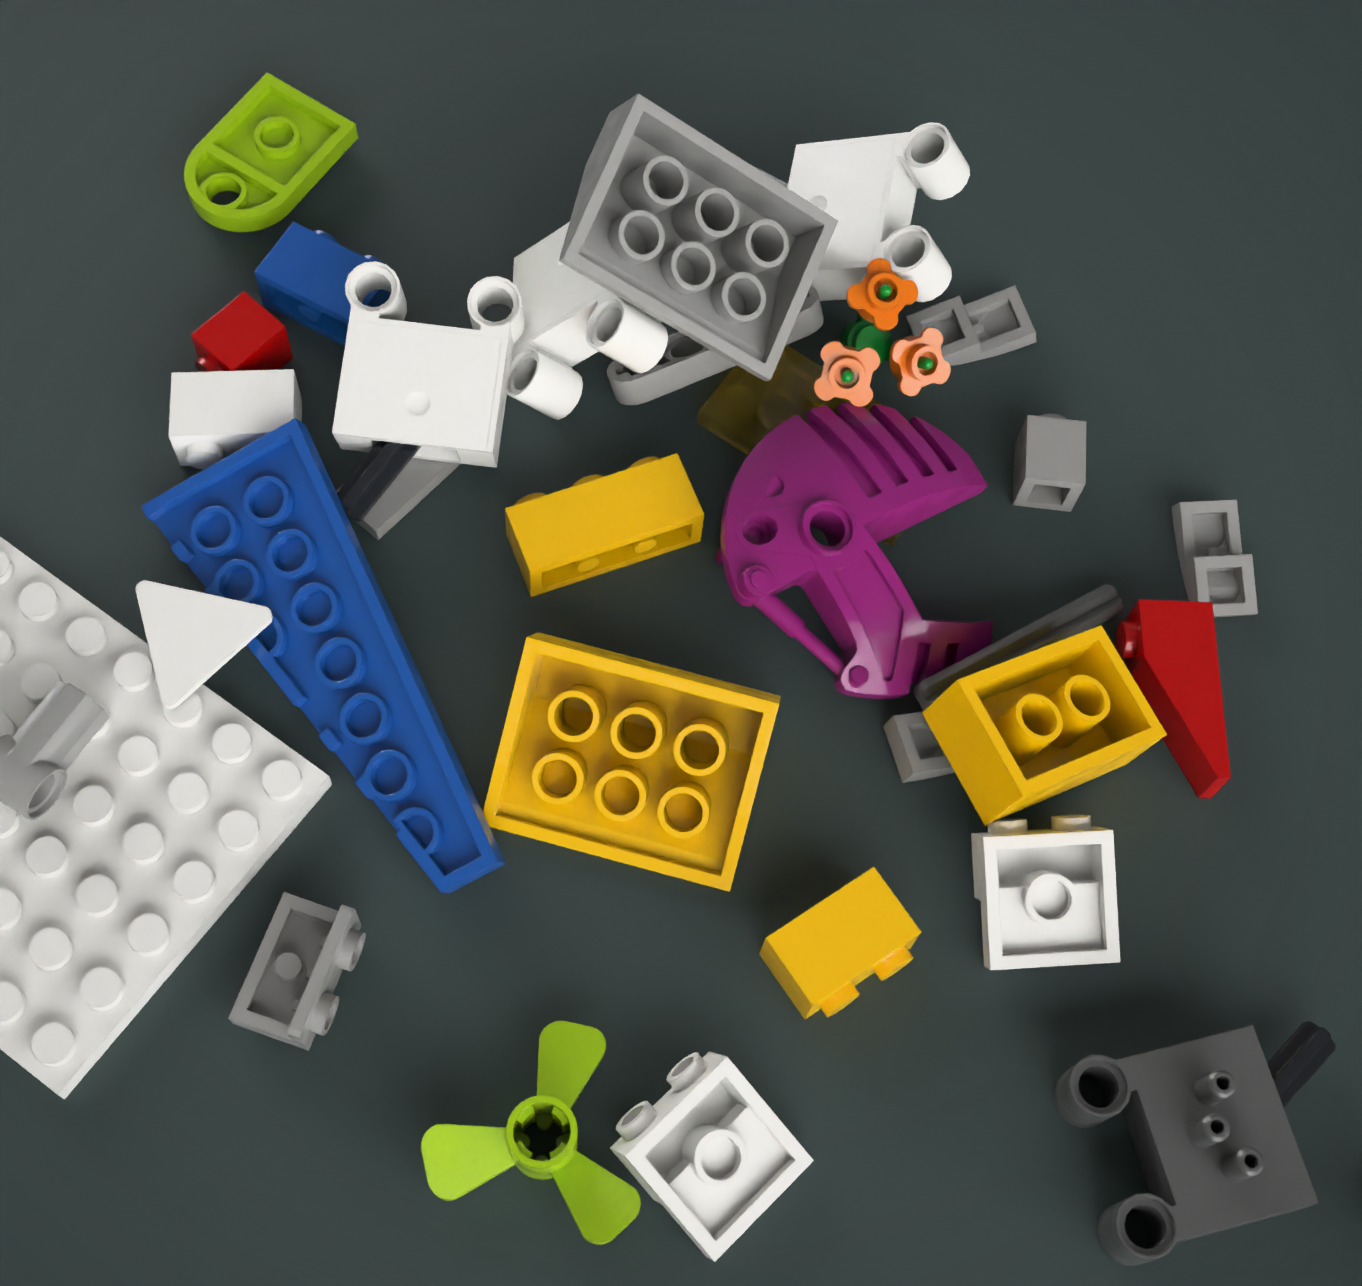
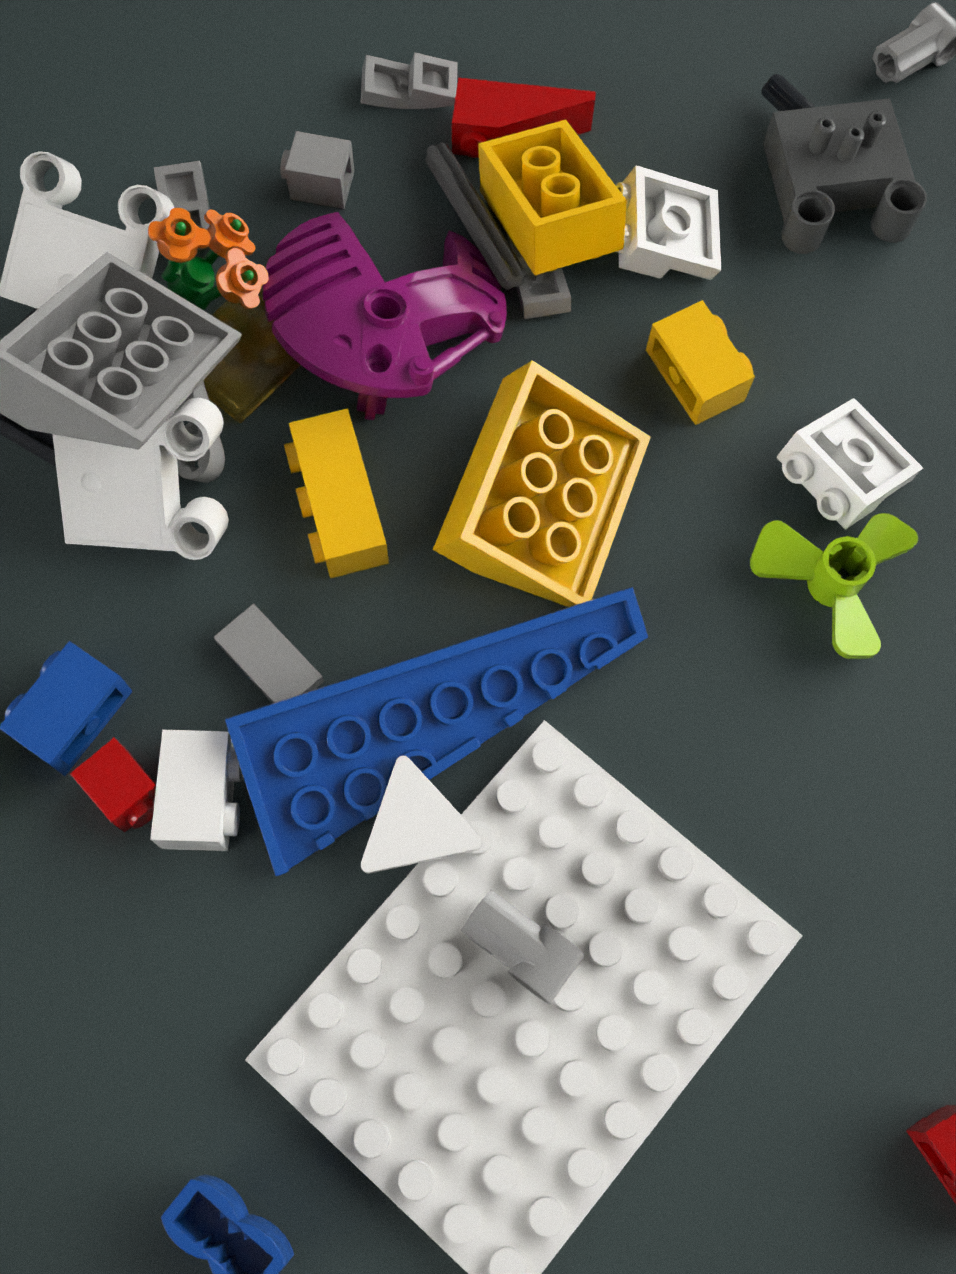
camera: 80 degrees left, 5 degrees up
(297, 971) = (710, 743): light grey bracket -> none
(420, 385) = (201, 615): white piece -> none

